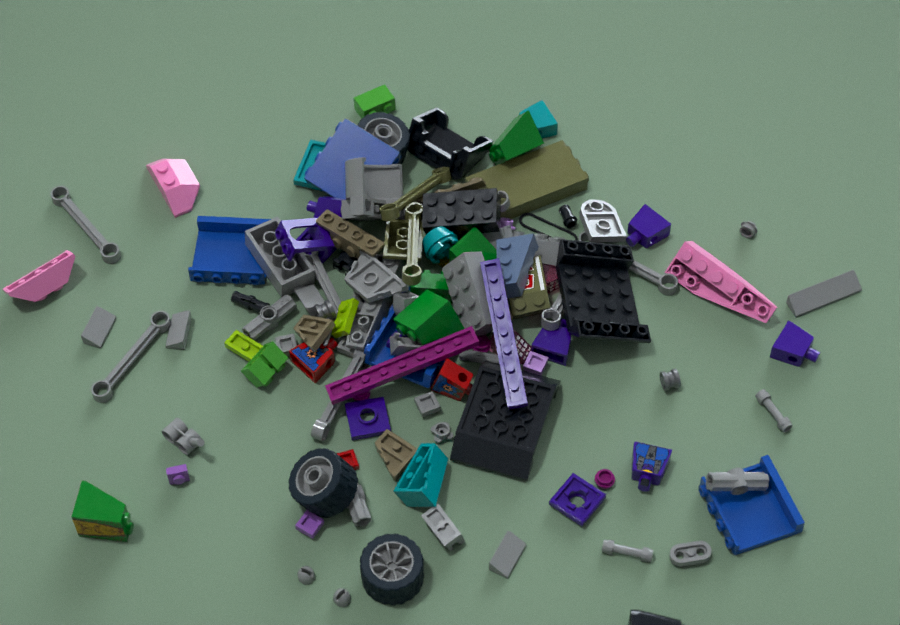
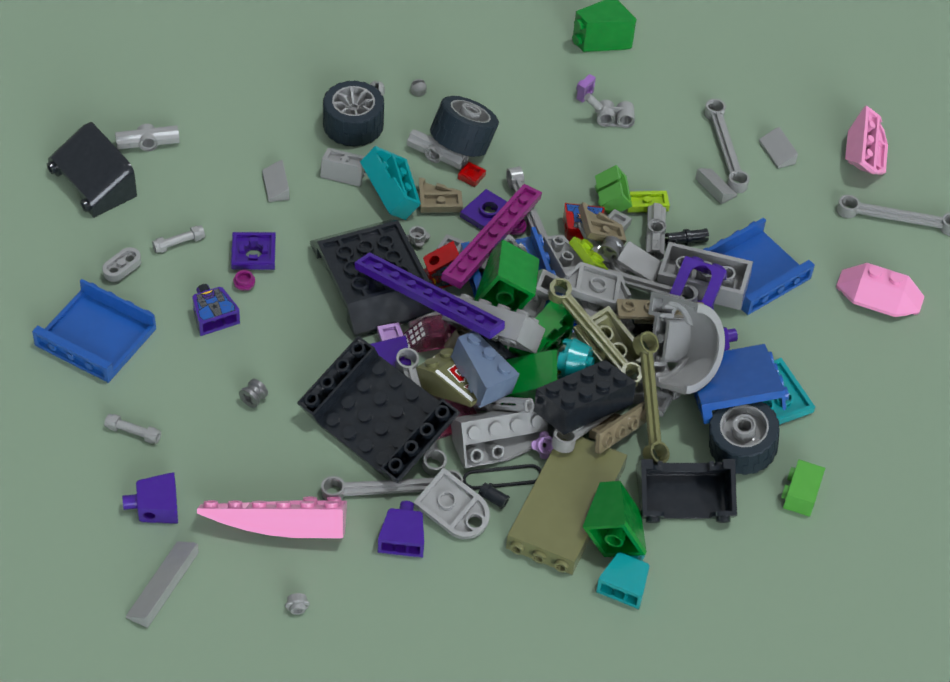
camera: 135 degrees right, 5 degrees down
(737, 481) = (118, 328): light grey piece -> none

